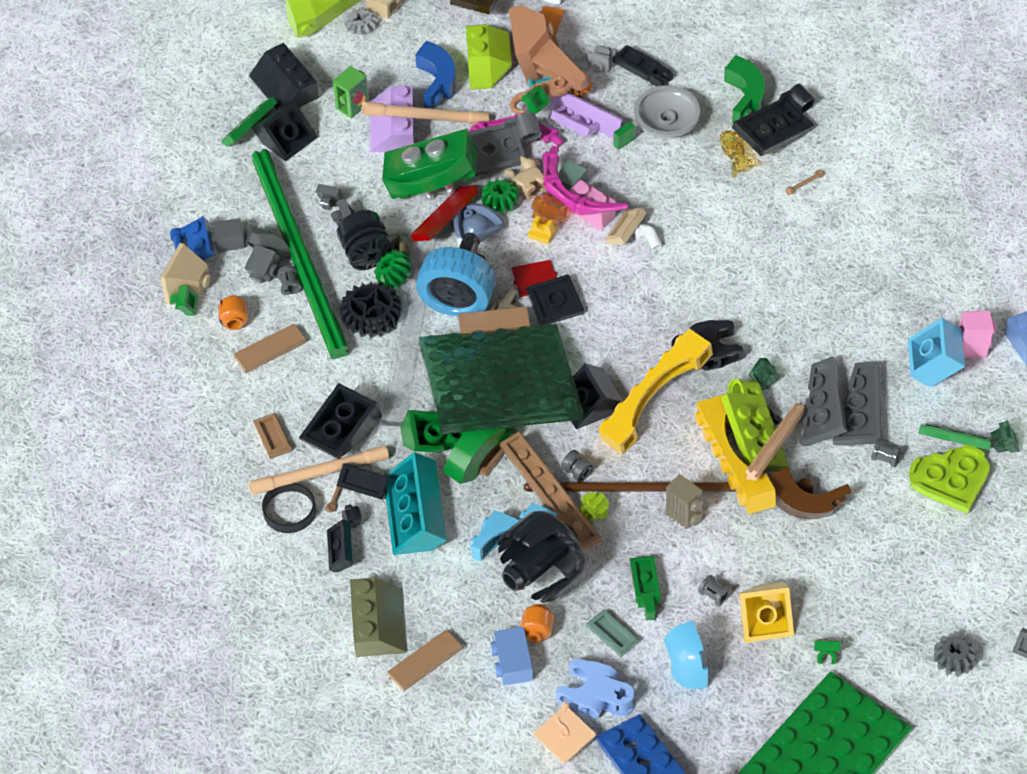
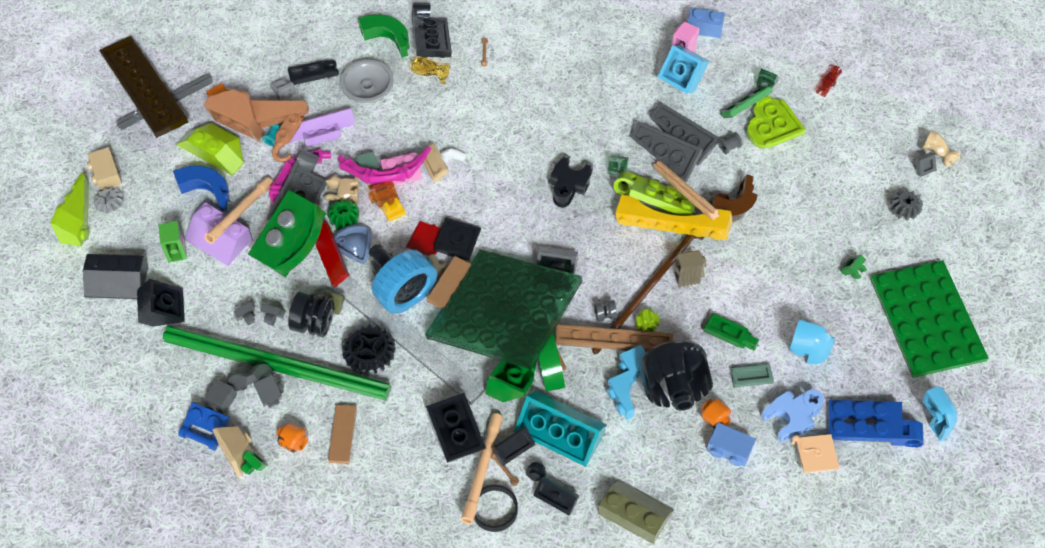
camera: 55 degrees left, 5 degrees up
(249, 121) = (129, 321): green tile -> none
(272, 435) = (421, 480): medium nougat tile -> none
(289, 280) = (295, 384): dark grey bush -> none
(393, 269) = (343, 313): green gear -> none
(424, 660) = (691, 502): medium nougat tile -> none
(536, 99) = (292, 140): green tile -> none
(624, 135) = (360, 116): green tile -> none
(688, 353) = (598, 267): yellow arch -> none
(714, 590) = (764, 297): dark grey bush -> none
(766, 612) = (804, 277): yellow slope -> none

